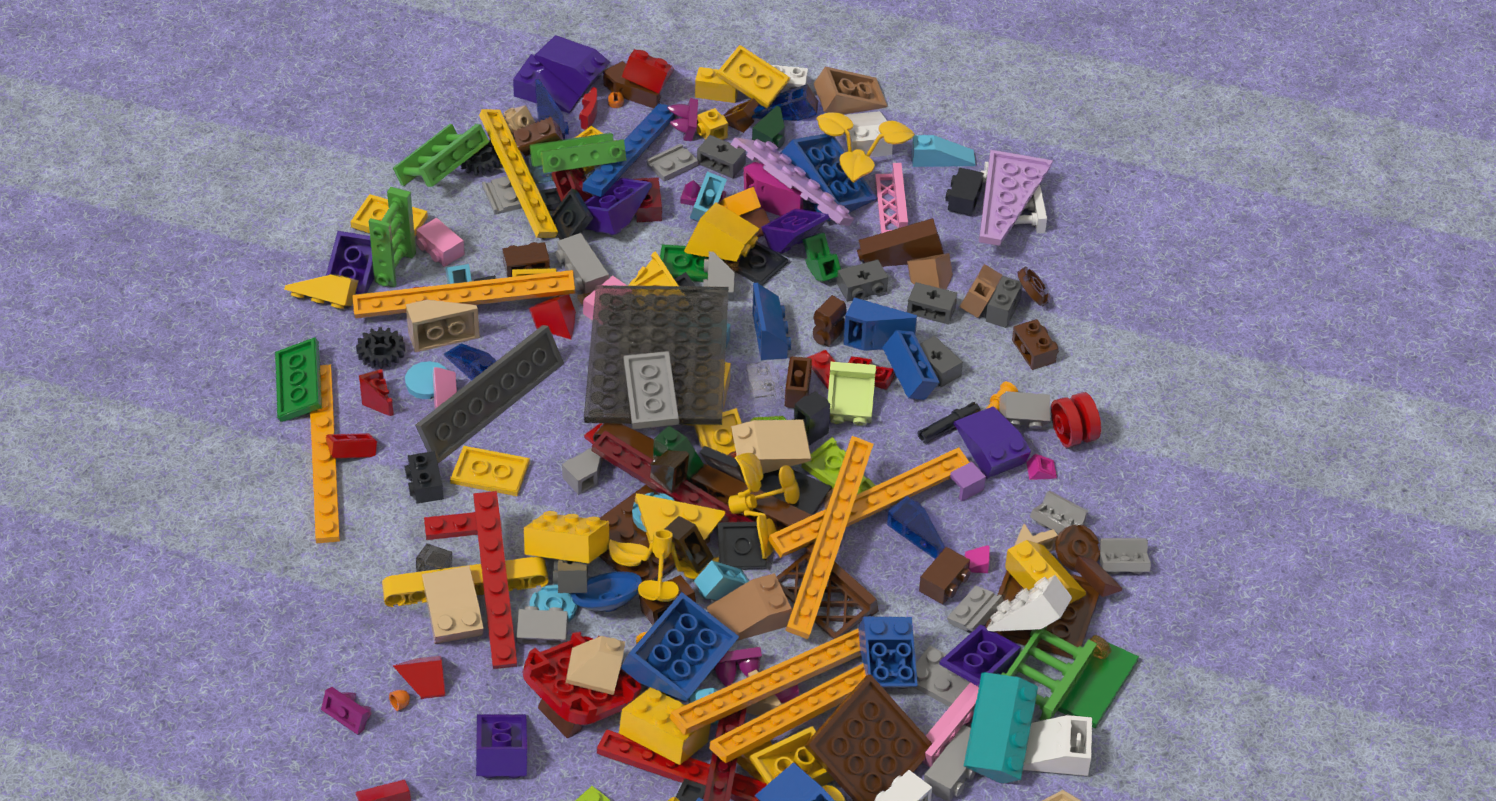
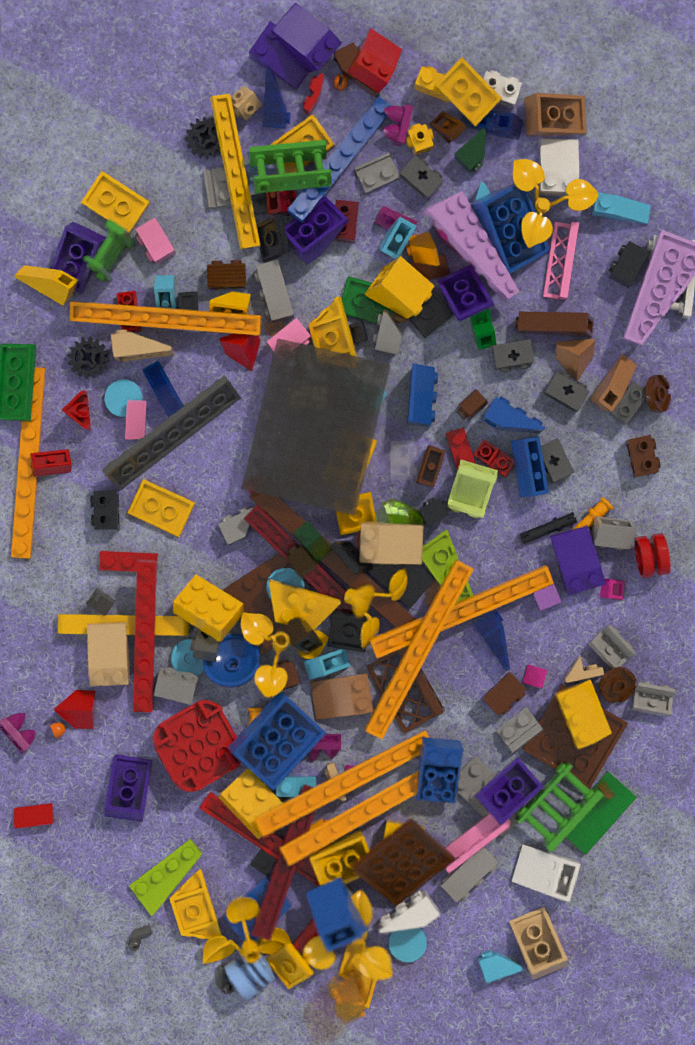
camera: 10 degrees right, 40 degrees up
(441, 155) = (178, 149): bright green fence -> none
(539, 132) = (259, 135): reddish brown brick -> none
(596, 664) = (209, 739): tan slope -> none
(651, 390) = (300, 477): light grey plate -> none
(1000, 727) = (508, 861): teal slope -> none
(1032, 608) = (559, 760): white slope -> none
(1097, 576) = (625, 719): copper slope -> none

